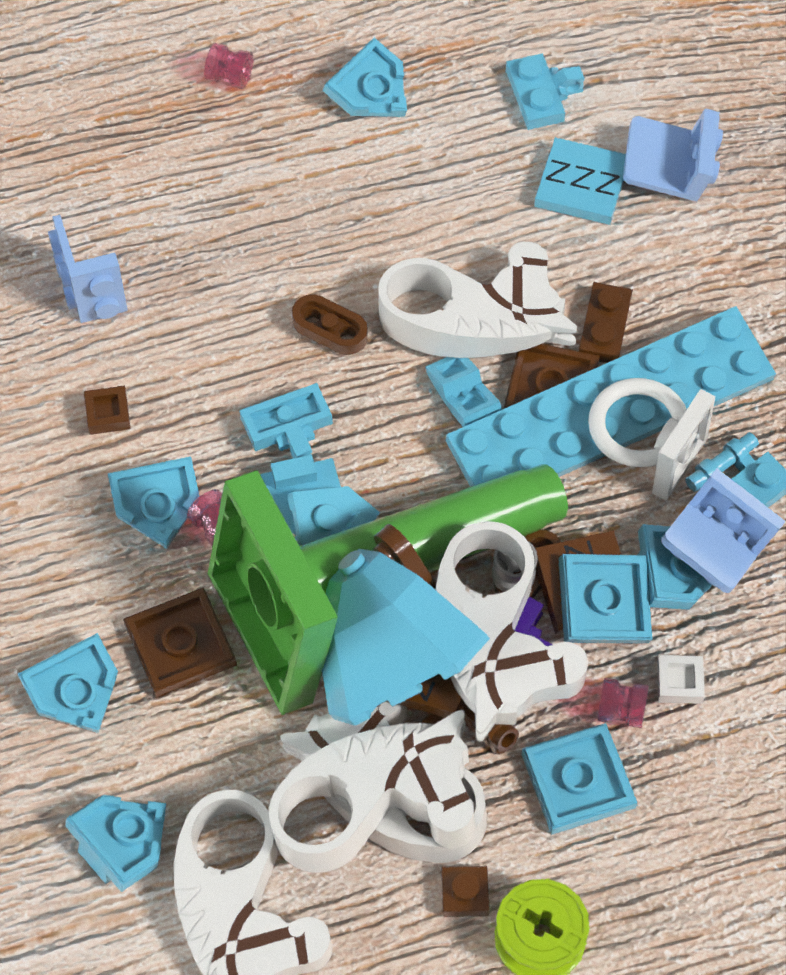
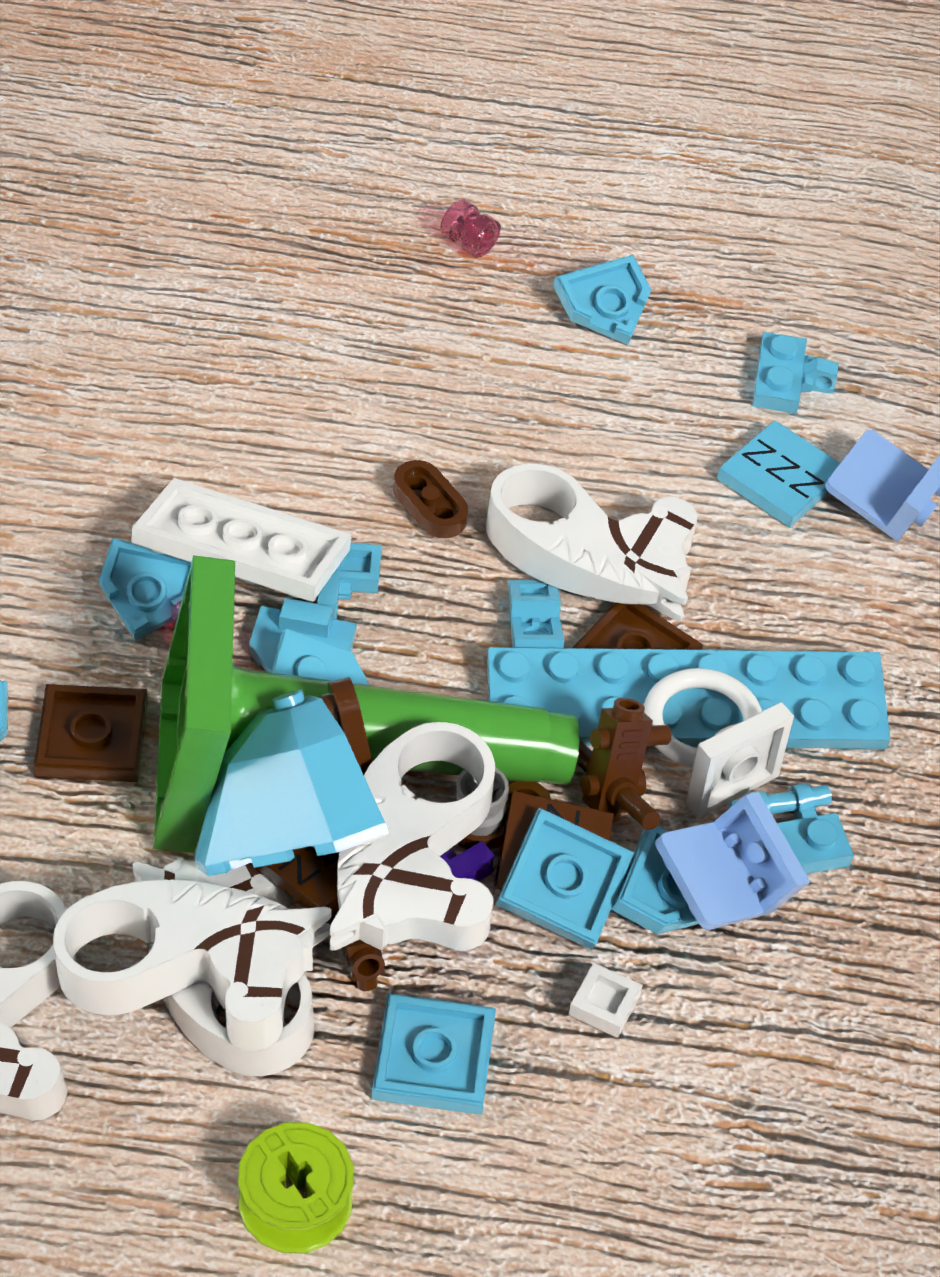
camera: 20 degrees right, 10 degrees down
(90, 284) = (206, 354): light blue bracket -> none
(107, 410) = (148, 481): reddish brown plate -> none
(212, 430) = (263, 542): none -> white plate
(465, 891) = (238, 1111): reddish brown plate -> none
(597, 492) = (614, 767): none -> reddish brown piece
(605, 321) = (730, 613): reddish brown plate -> none
(622, 703) = (524, 994): clear pink wheel -> none

